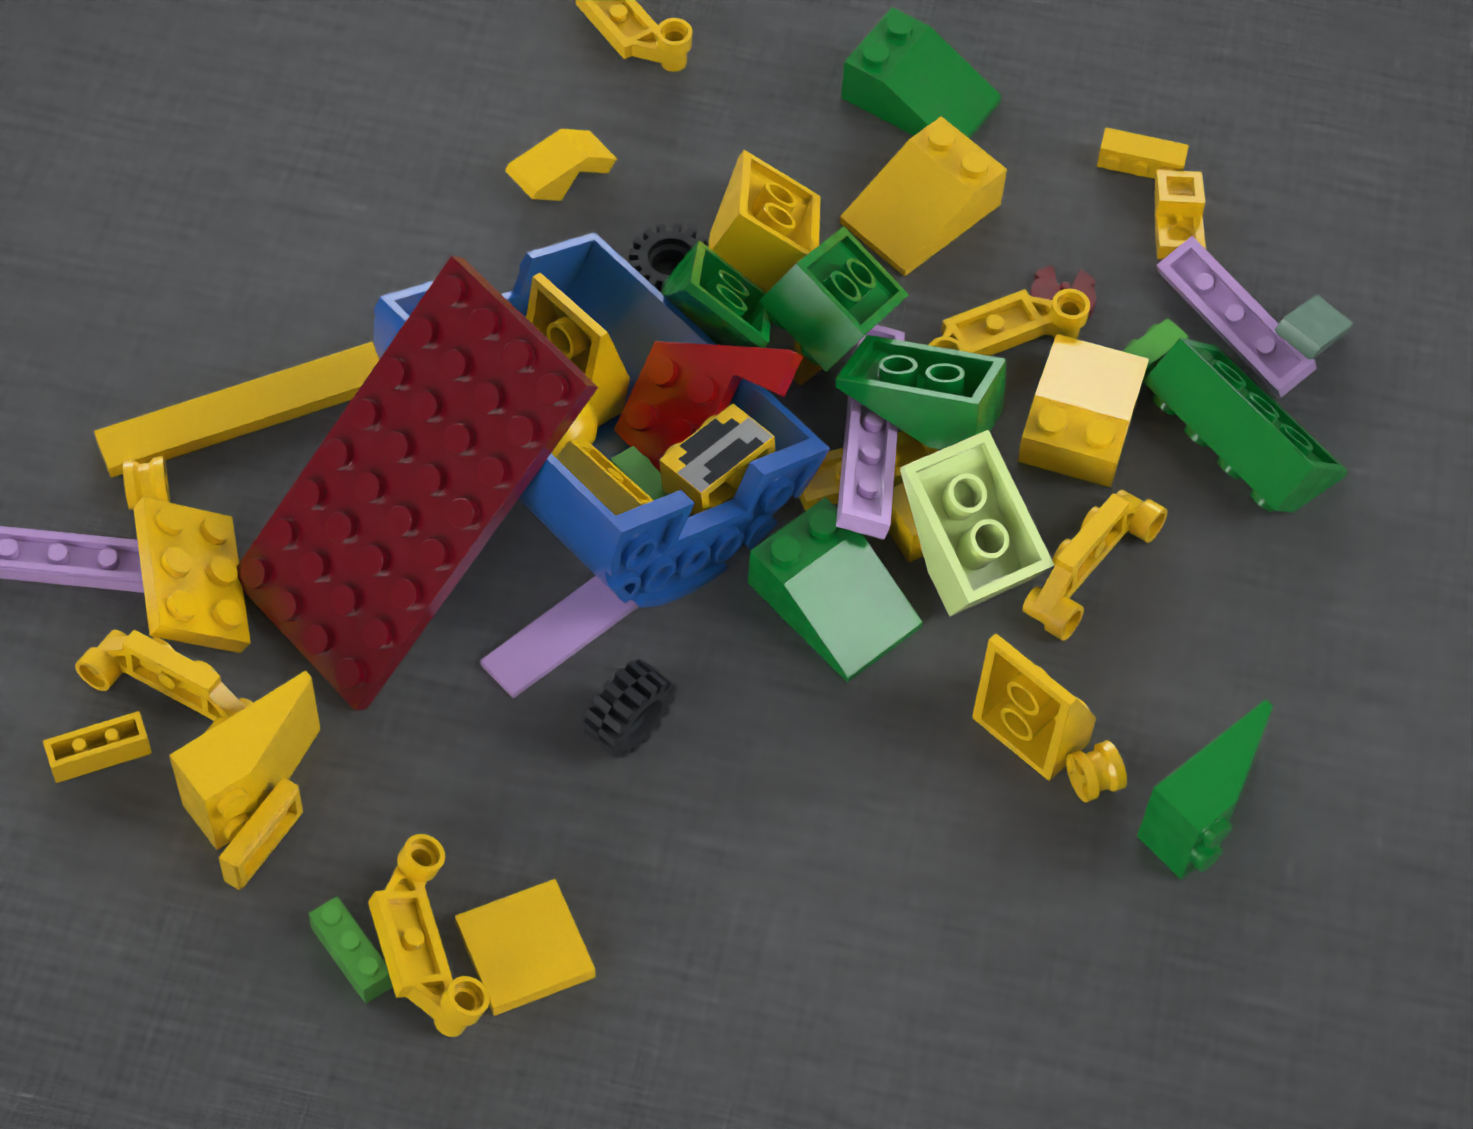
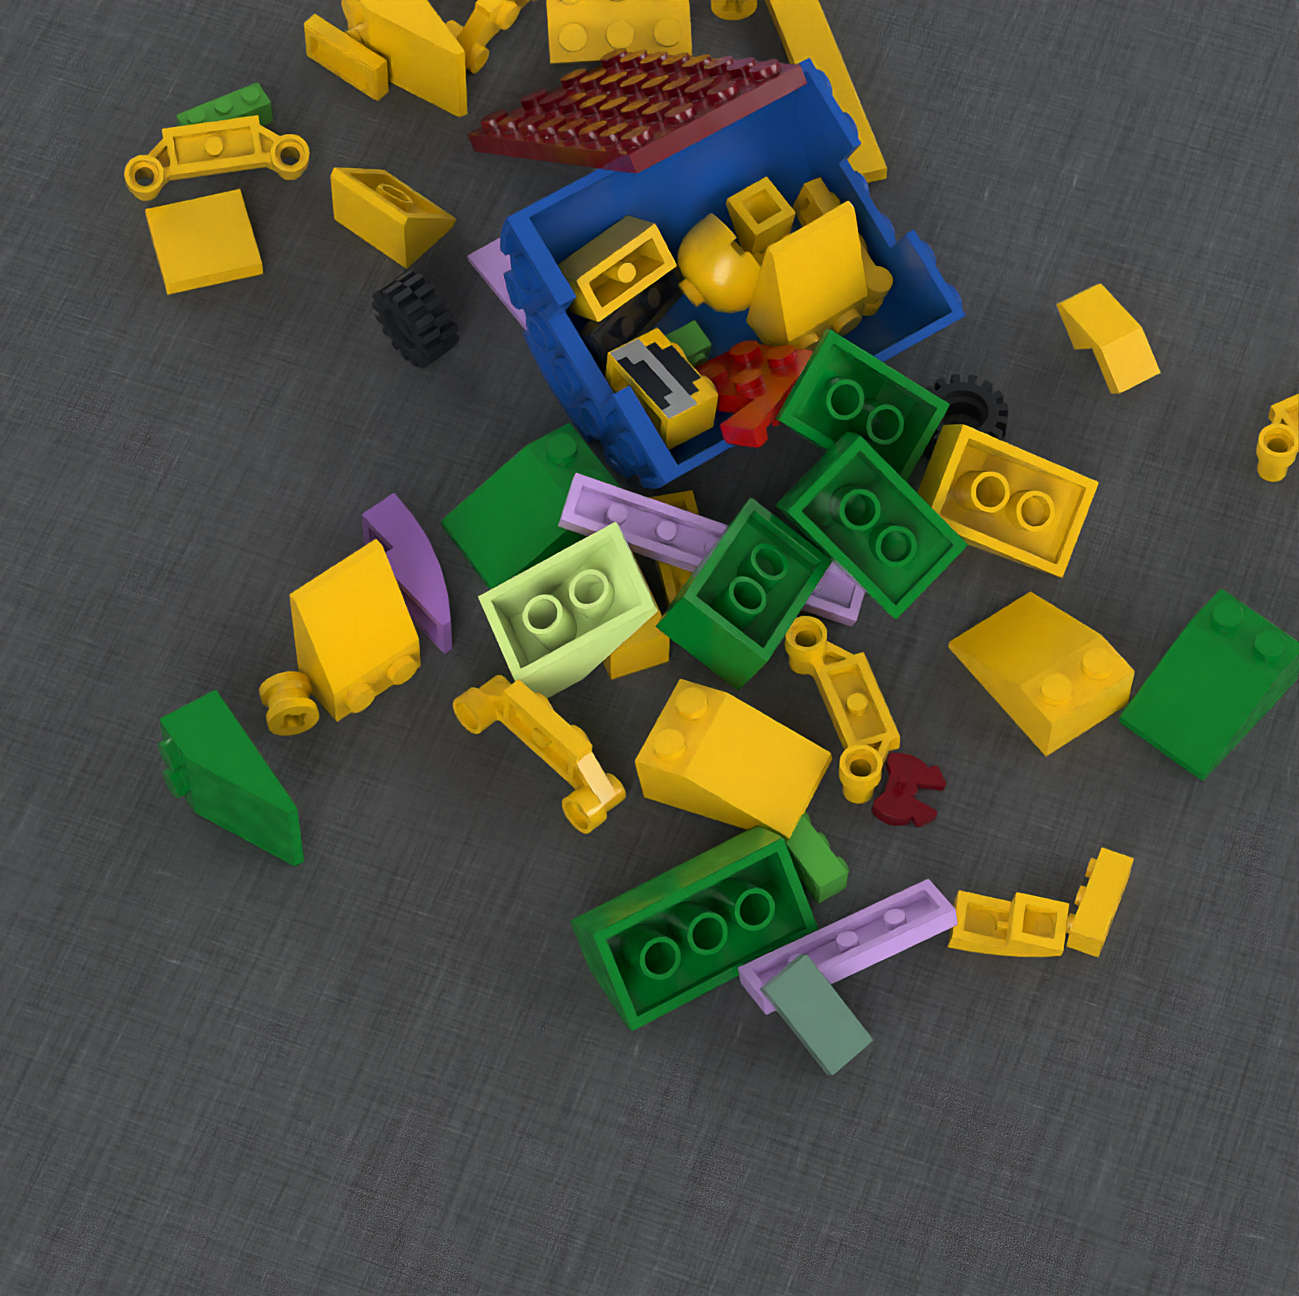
camera: 100 degrees right, 0 degrees up
(473, 764) = (387, 213): none -> yellow slope
(918, 686) = (413, 567): none -> medium lavender slope

